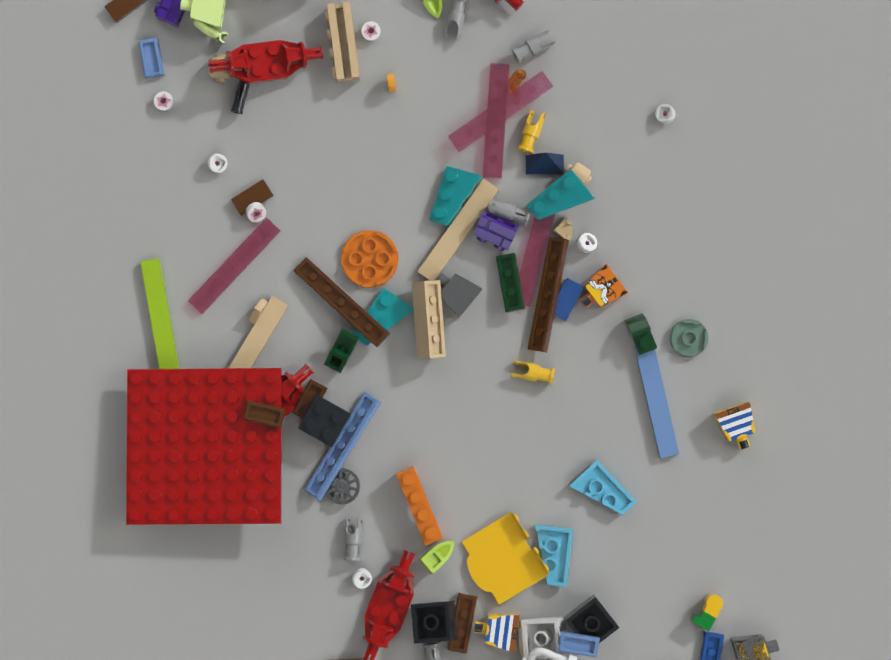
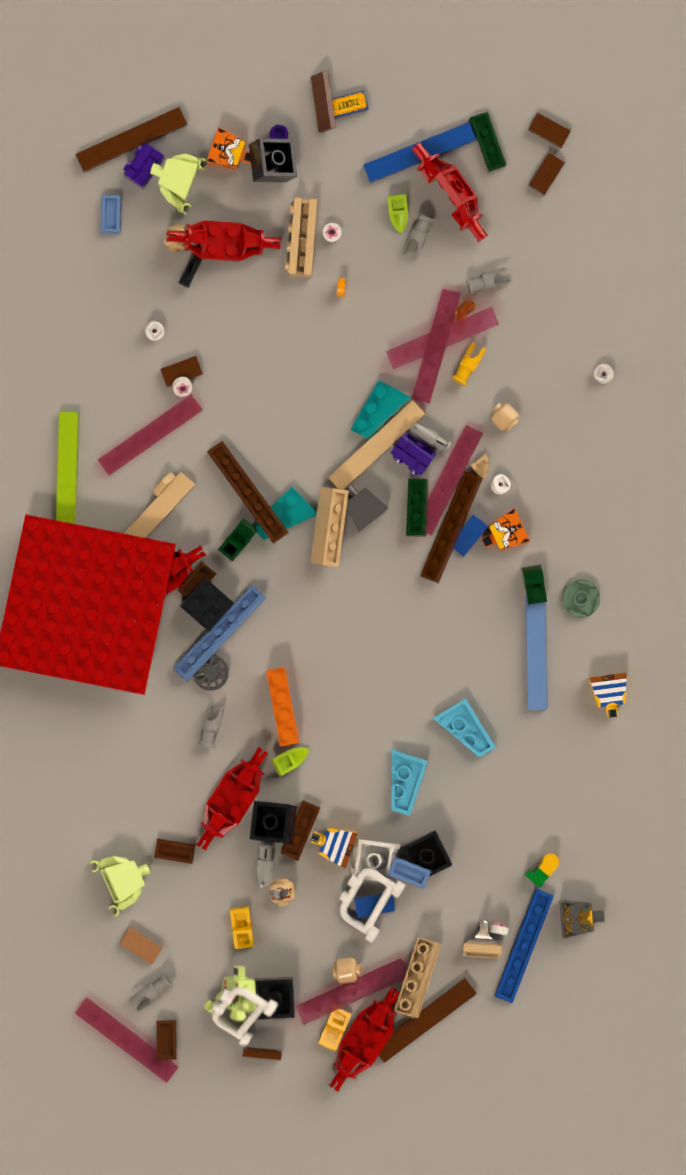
camera: 10 degrees right, 0 degrees up
(163, 101) = (114, 259): white tile -> none
(264, 414) = (150, 585): reddish brown tile -> none
(361, 578) = (211, 766): white tile -> none
(369, 258) = (284, 455): orange tile -> none
(503, 560) = (353, 776): yellow piece -> none
(535, 373) = (422, 601): yellow piece -> none
(544, 163) = (475, 398): dark blue slope -> none
(561, 195) = (485, 432): teal wing -> none

